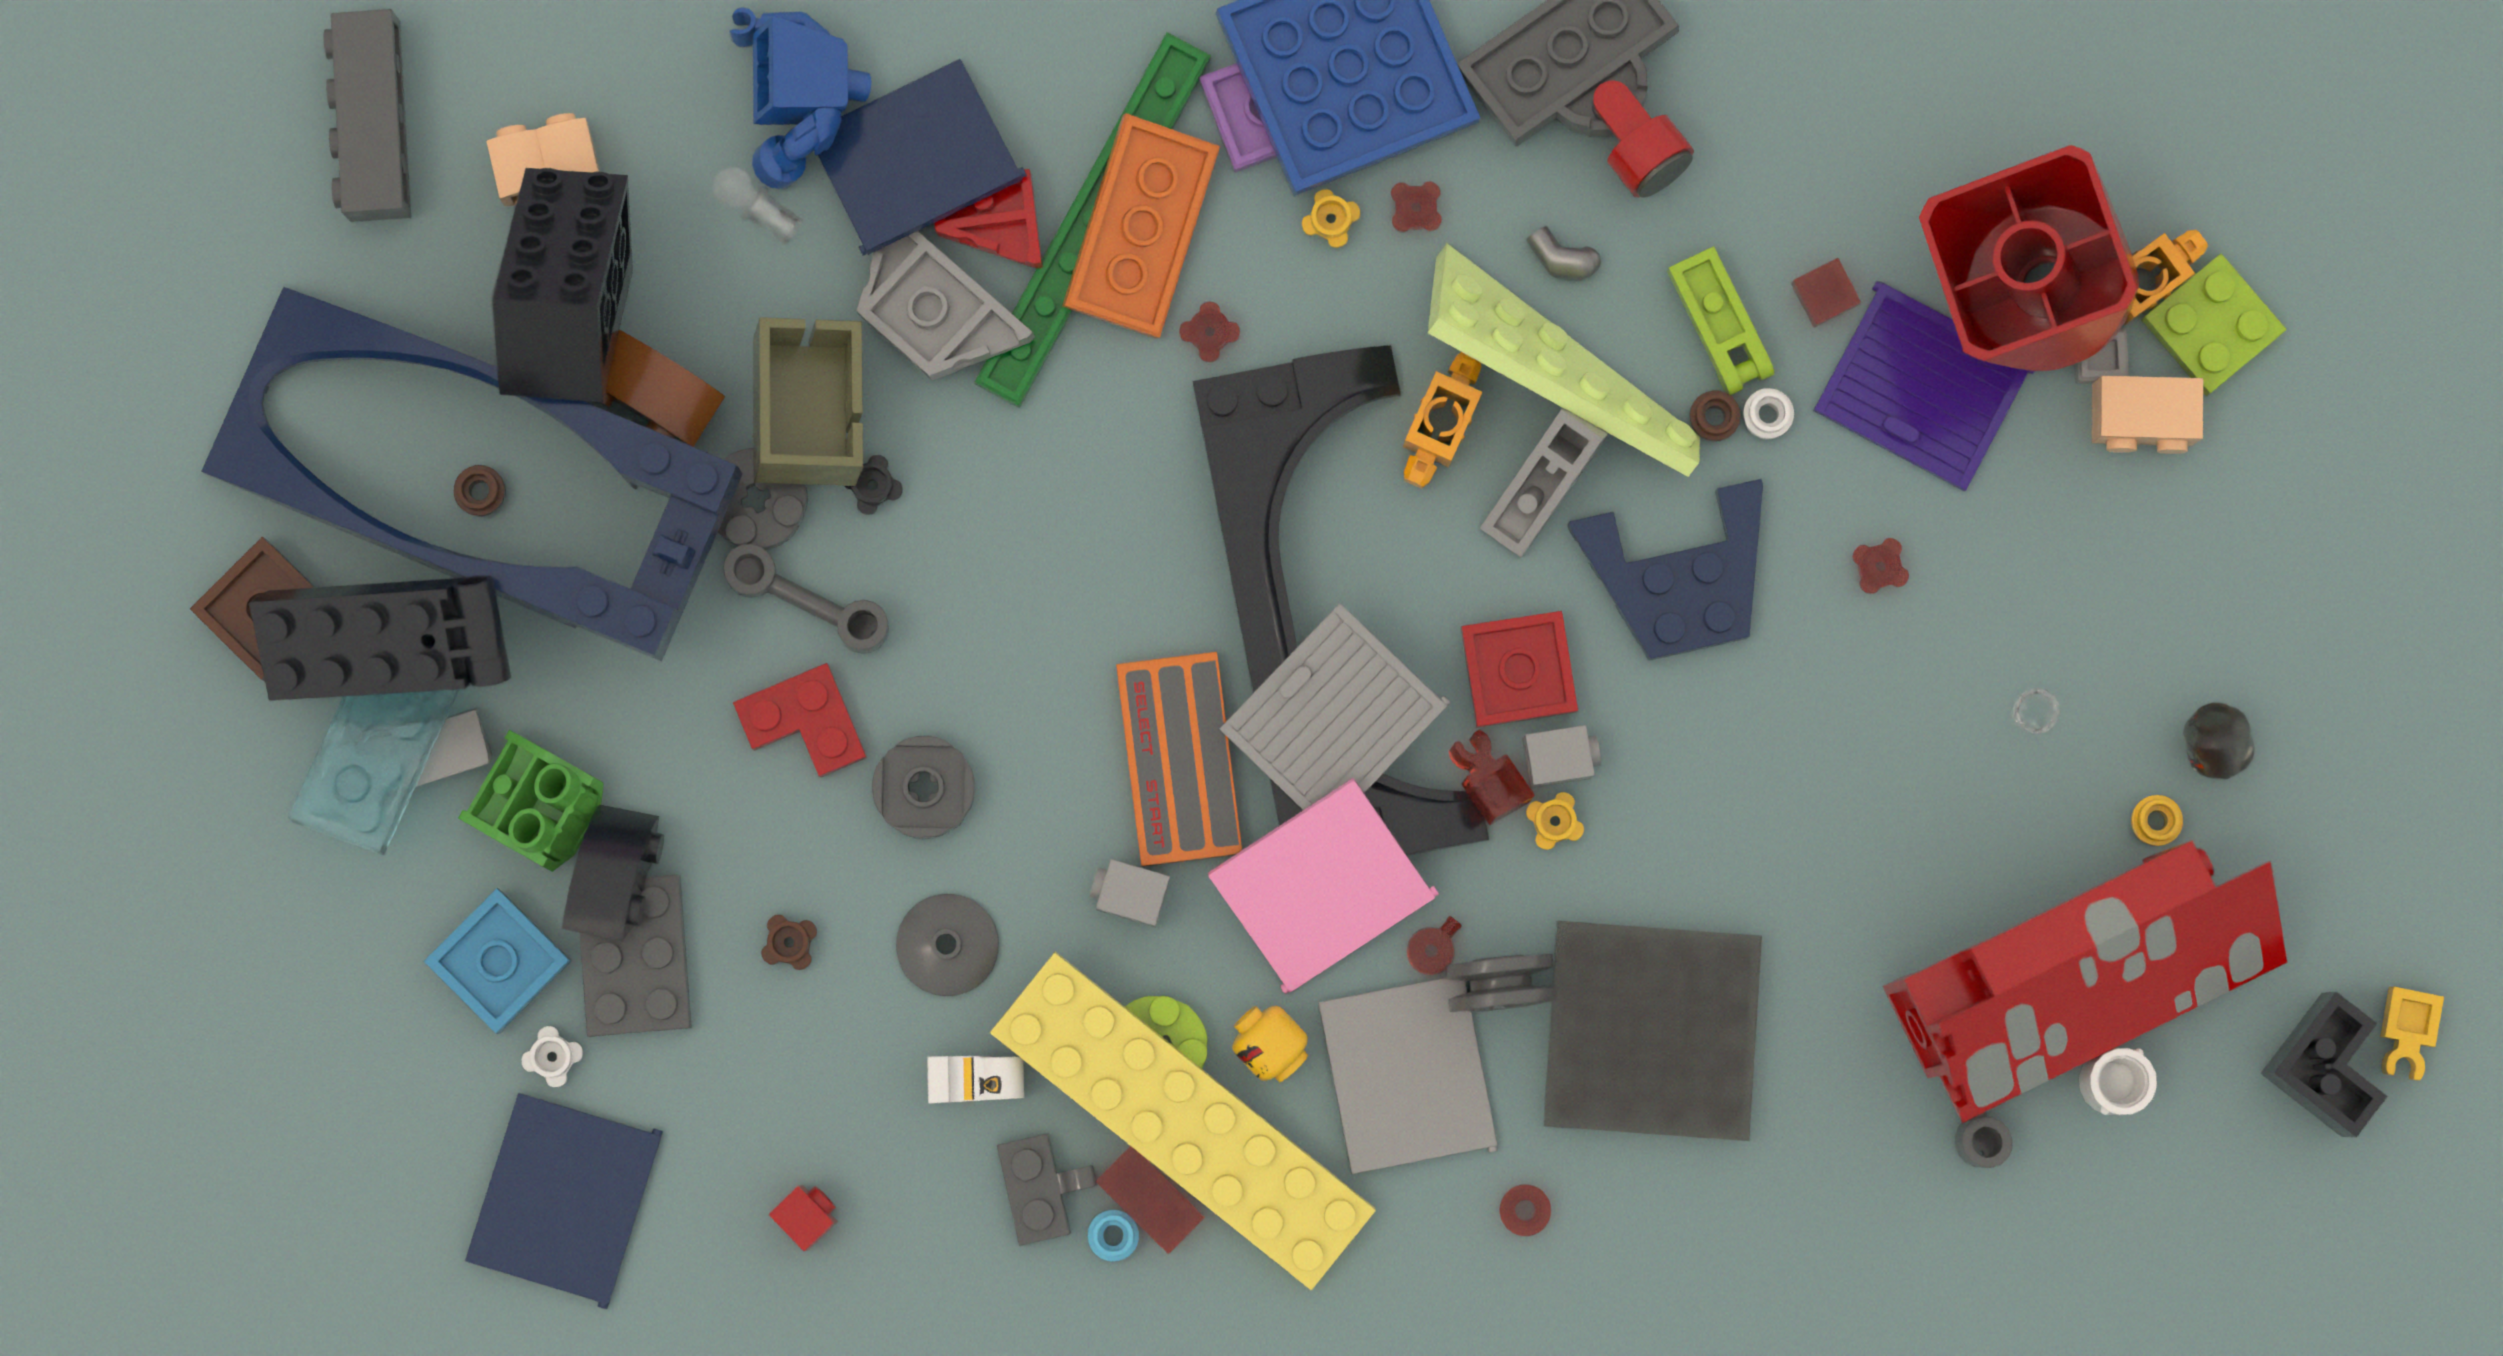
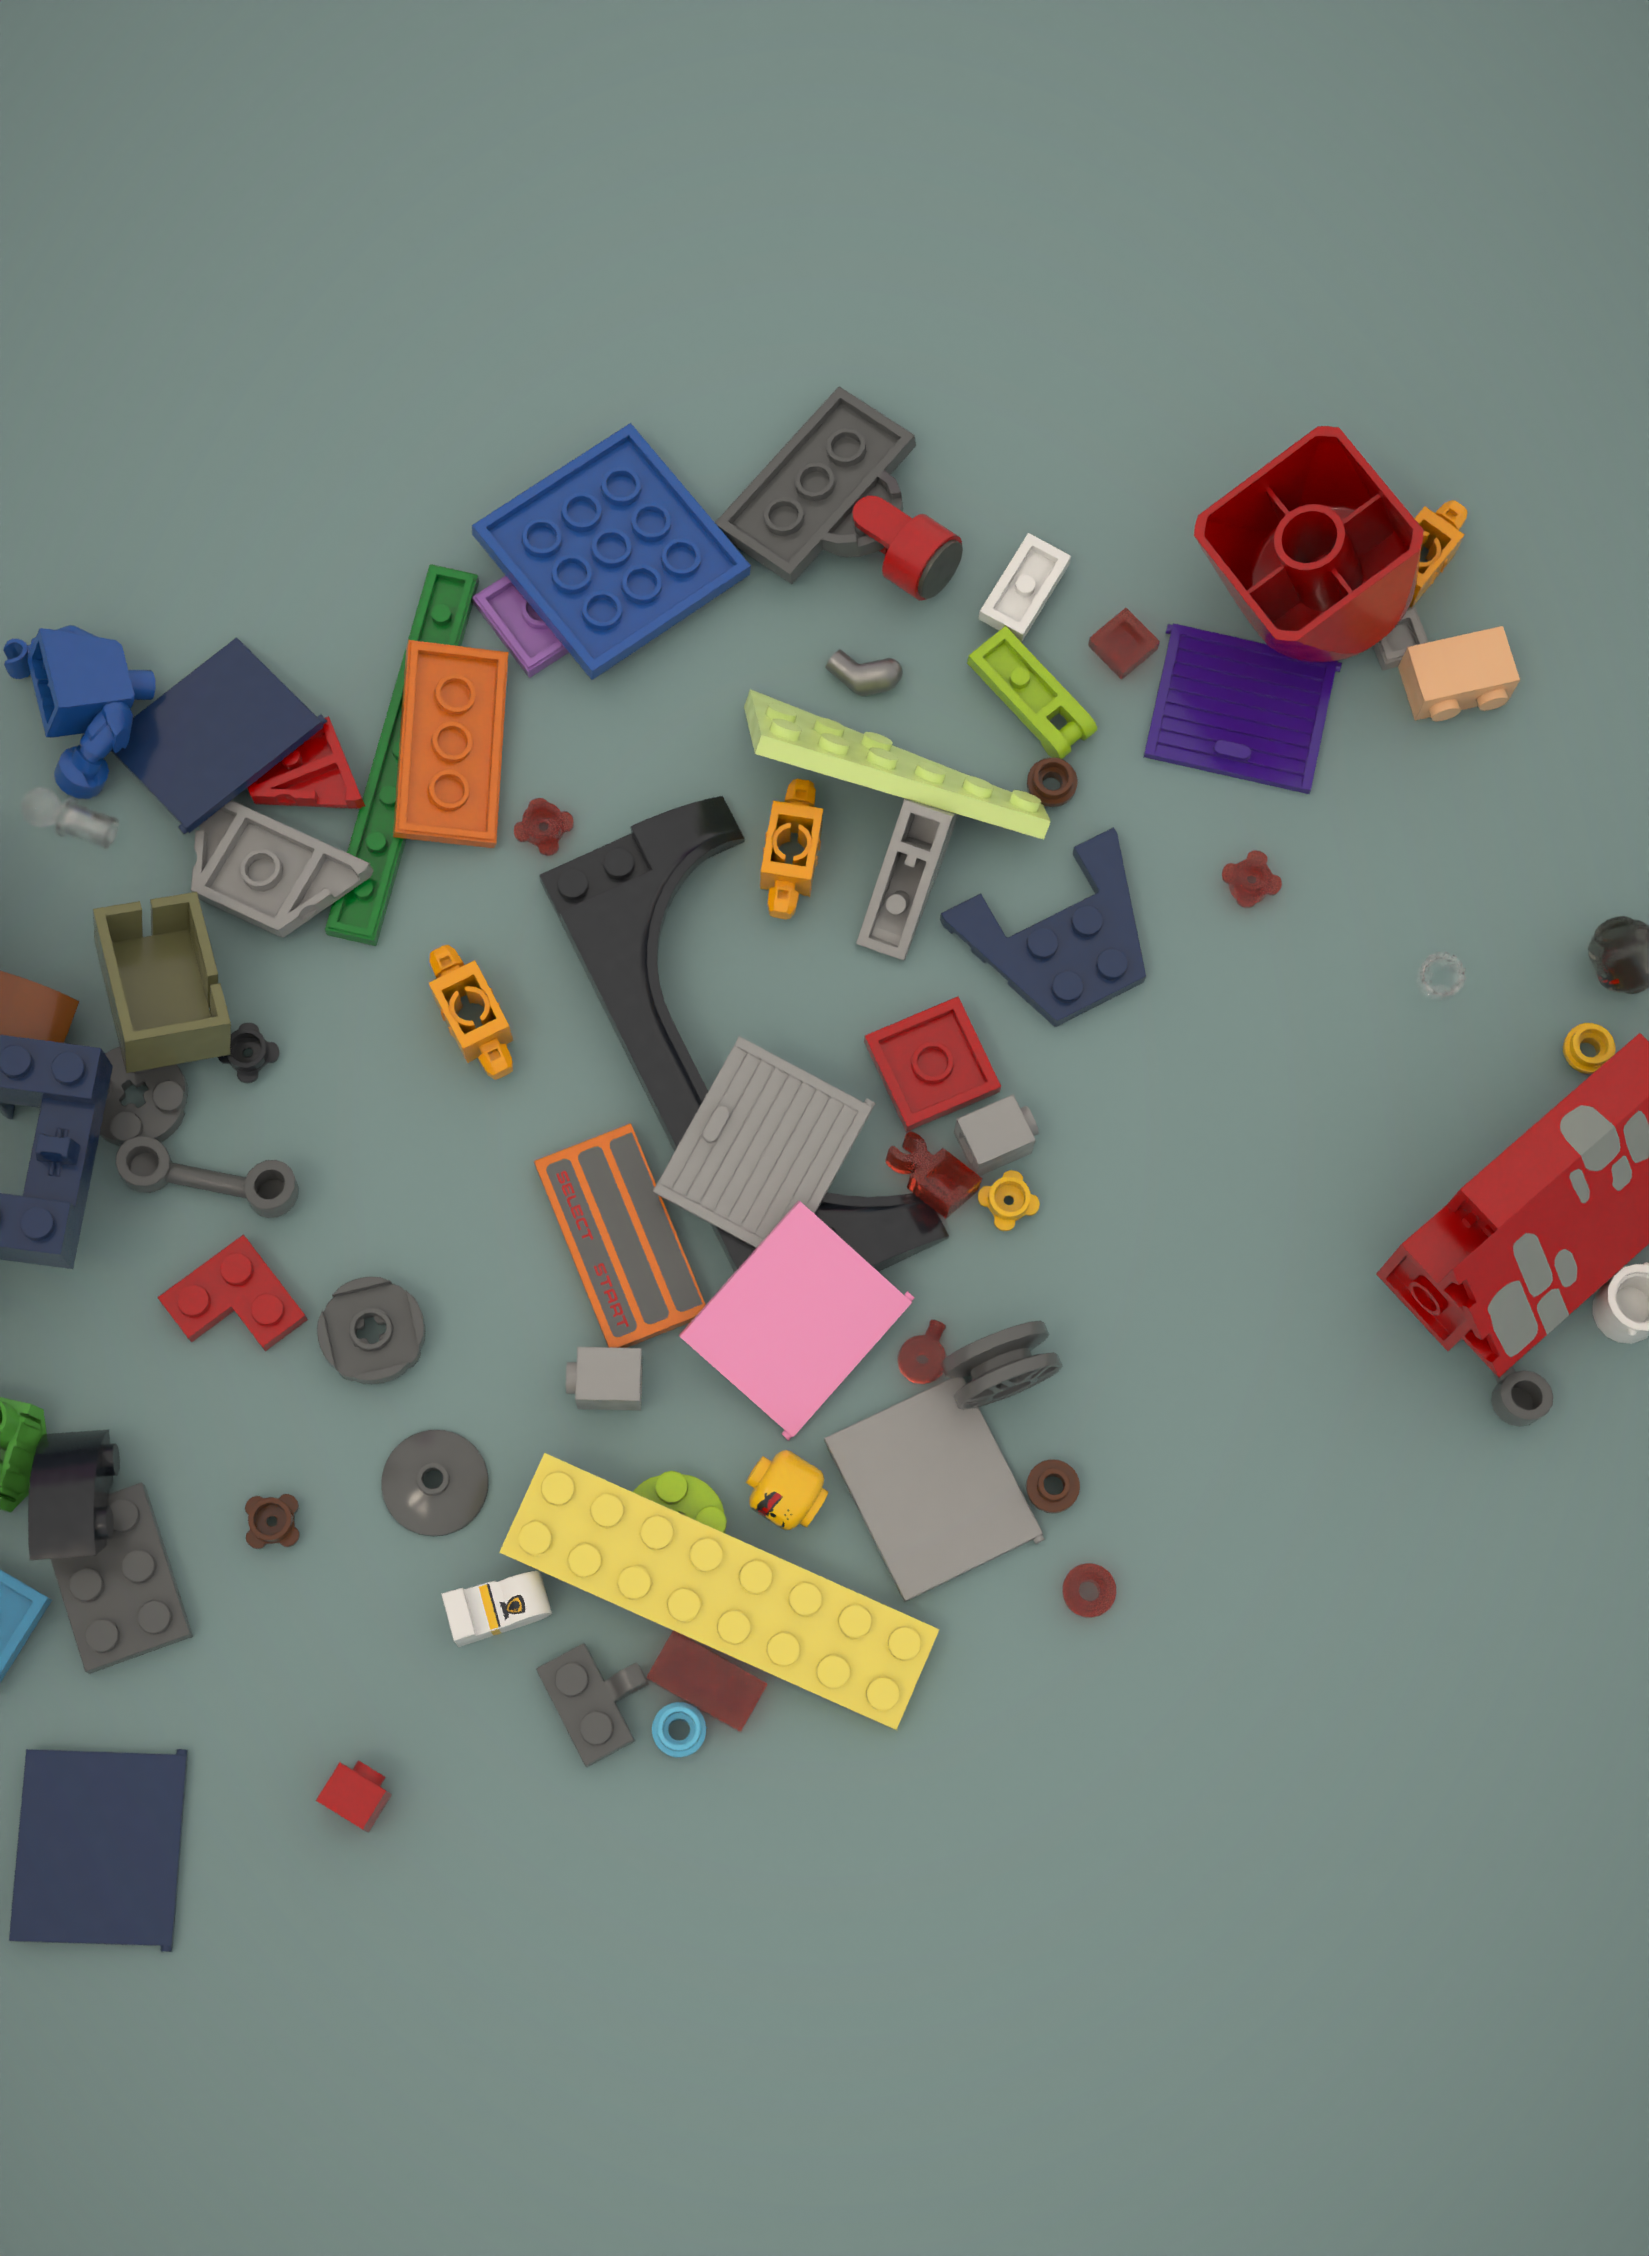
camera: 15 degrees left, 10 degrees down
(538, 1061) = (47, 1688): white plate -> none
(1081, 450) = (490, 1039): none -> light orange piece
(1327, 204) = (629, 680): yellow plate -> none
(1408, 219) = (711, 676): clear red plate -> none
(1502, 1104) = (1041, 1498): none -> reddish brown plate
(1652, 1031) = (1164, 1378): clear smoke plate -> none
(1745, 208) = (1025, 586): none -> white plate
(1774, 399) = (1105, 754): white plate -> none
(2213, 324) = (1494, 582): lime plate -> none

